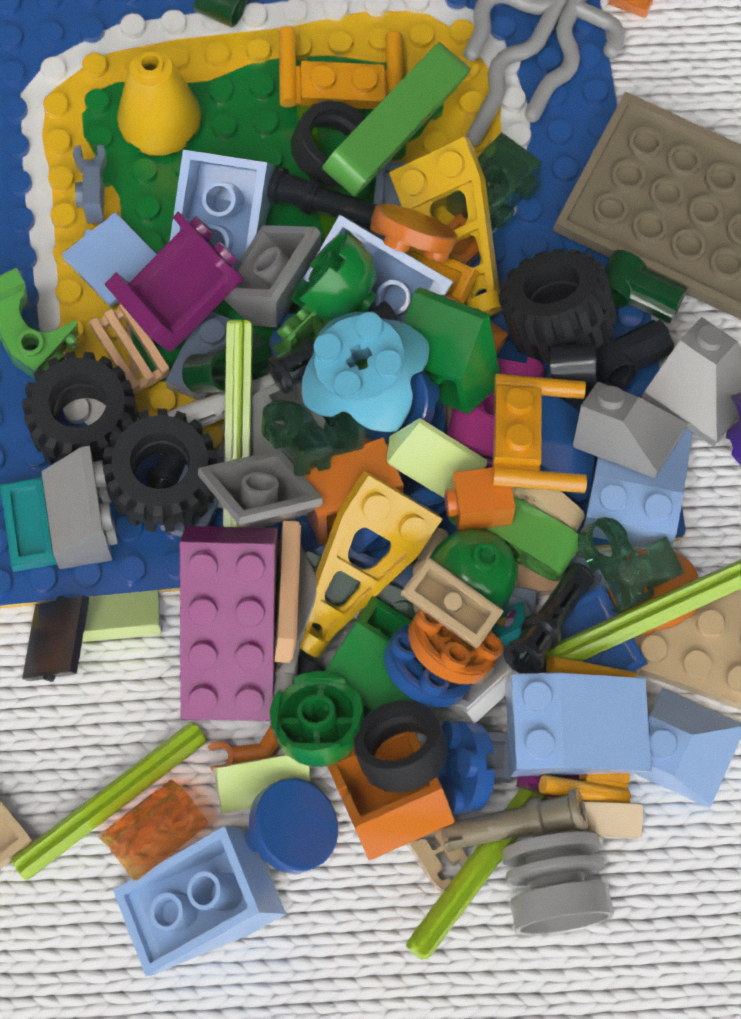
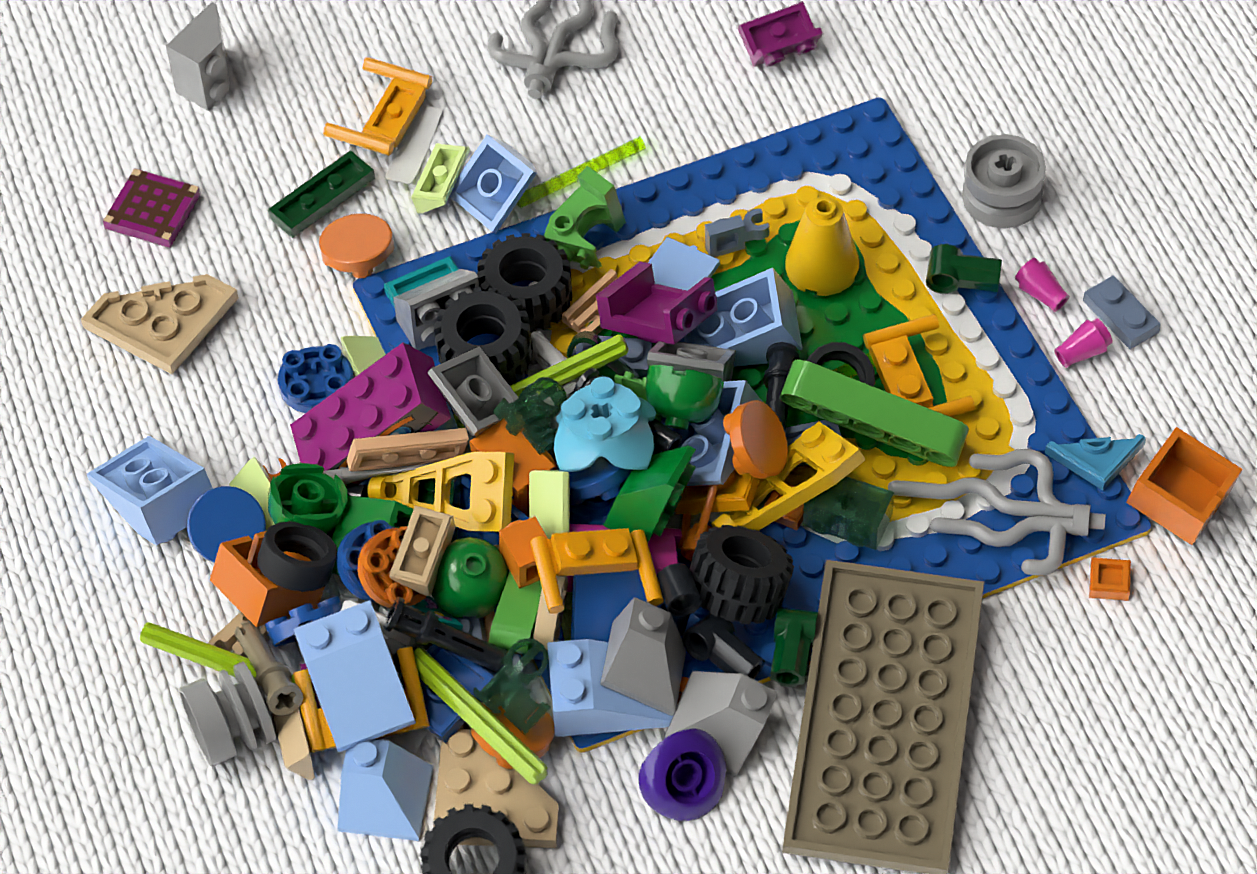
camera: 75 degrees right, 15 degrees down
(55, 638) = (335, 331): black piece -> none
(108, 684) = (312, 375): none -> blue tile
(108, 800) = (219, 410): lime axle -> none
(153, 829) = (197, 439): clear orange bracket -> none

